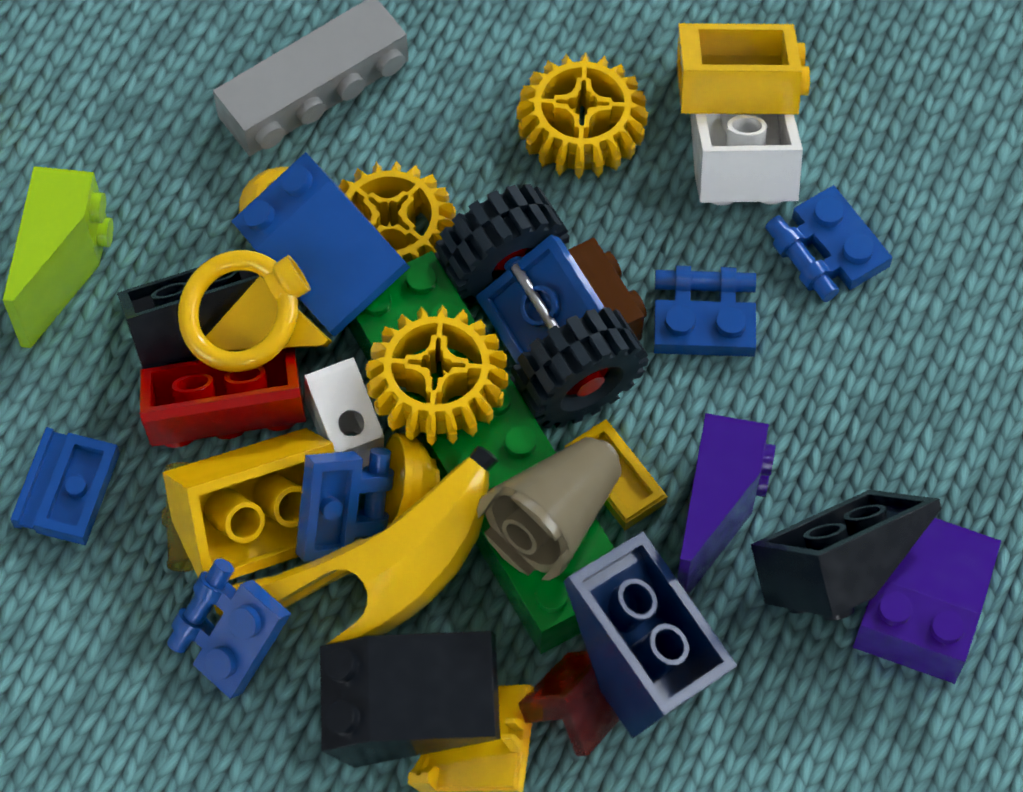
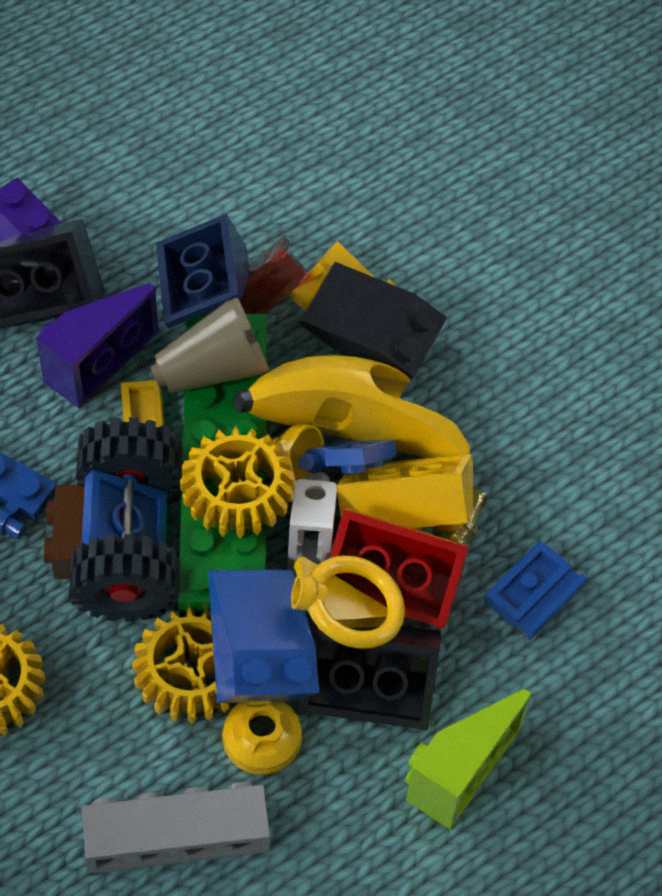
camera: 155 degrees left, 5 degrees down
(242, 634) = (469, 422): blue plate -> none

